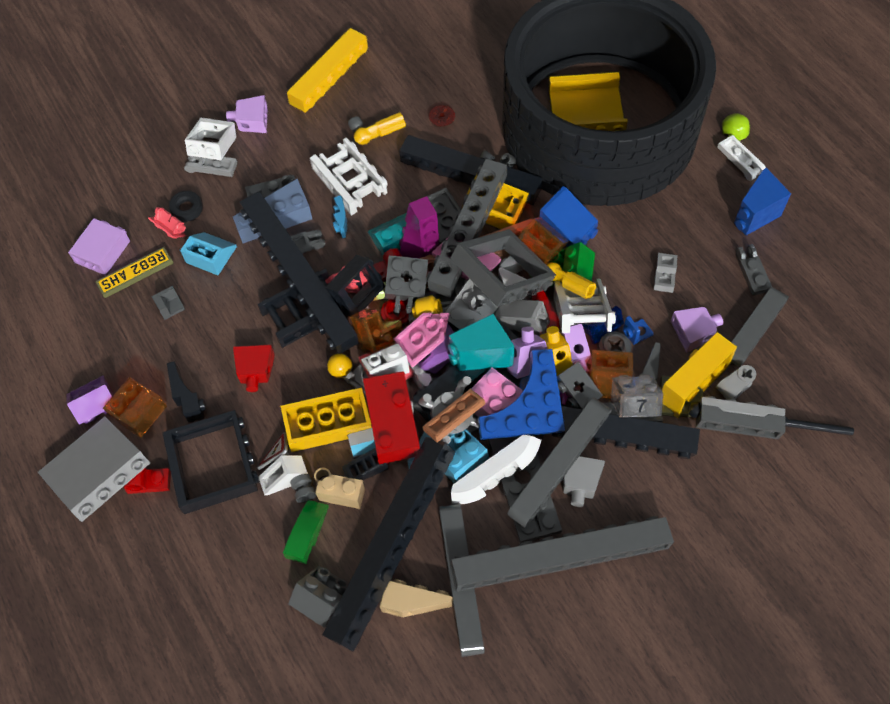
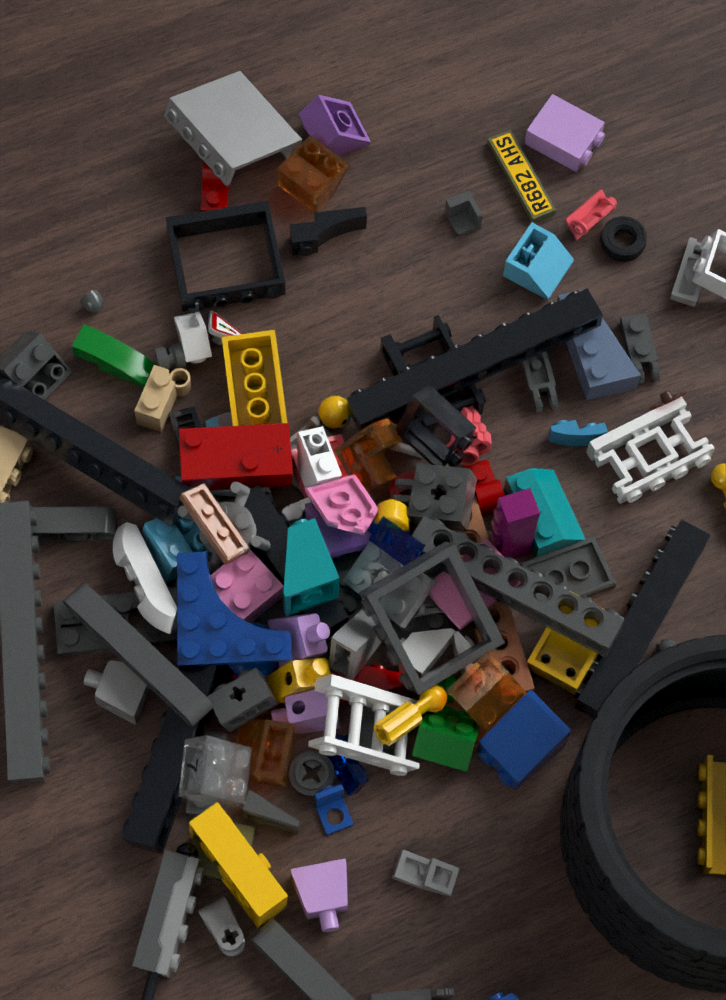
camera: 90 degrees right, 5 degrees up
(253, 365) = (352, 310): red torso -> none
(256, 557) = (92, 301): none -> dark grey hinge
(311, 167) = (667, 397): none -> piece
(450, 294) = (395, 541): none -> clear blue plate

